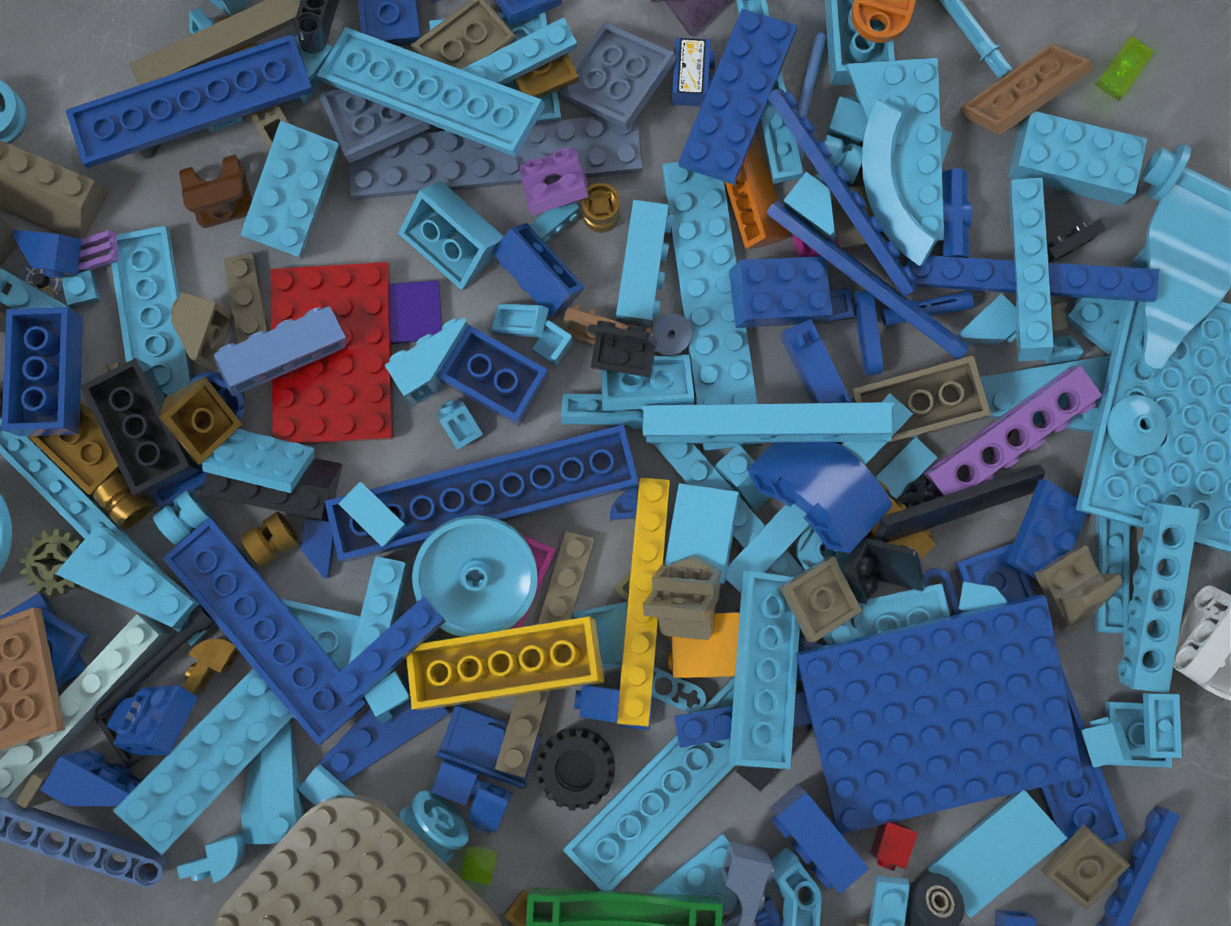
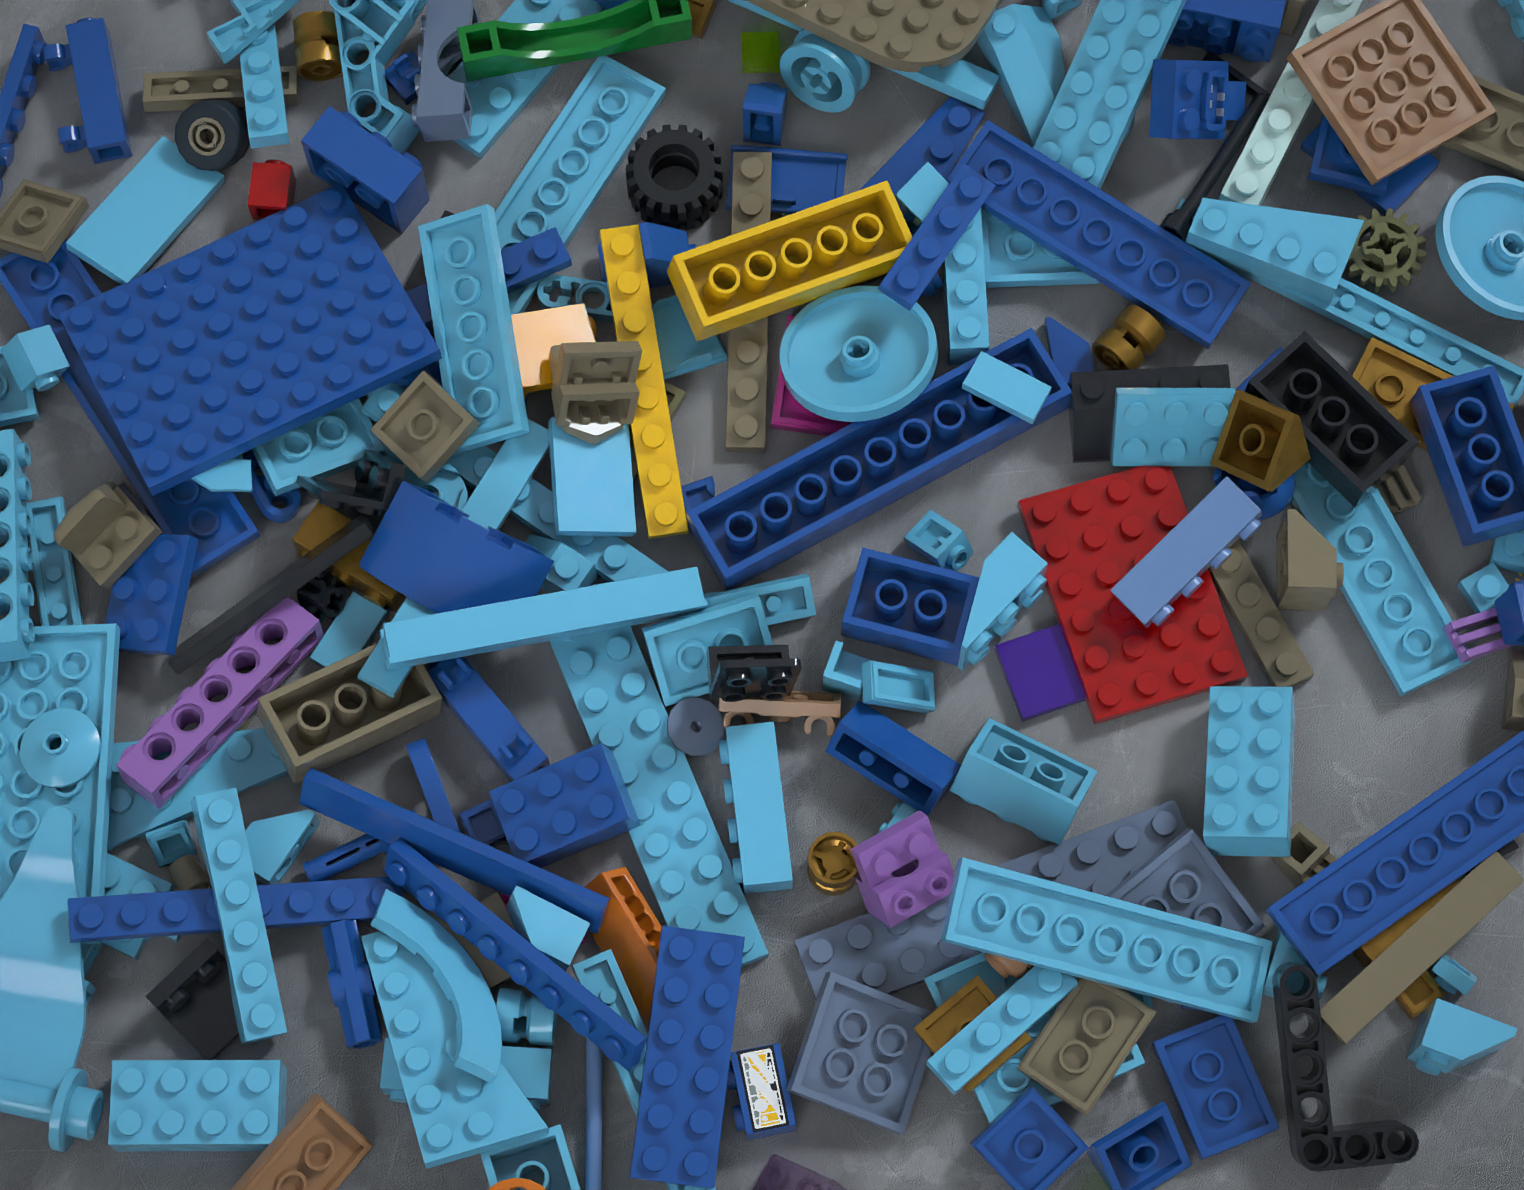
camera: 165 degrees right, 10 degrees down
(124, 507) = (1335, 339): pearl gold wheel -> none
(183, 517) = (1247, 336): medium azure wheel -> none
(212, 656) = (1155, 193): pearl gold brick -> none
(219, 199) = (1342, 745): reddish brown piece -> none
(456, 783) = (812, 127): blue brick -> none

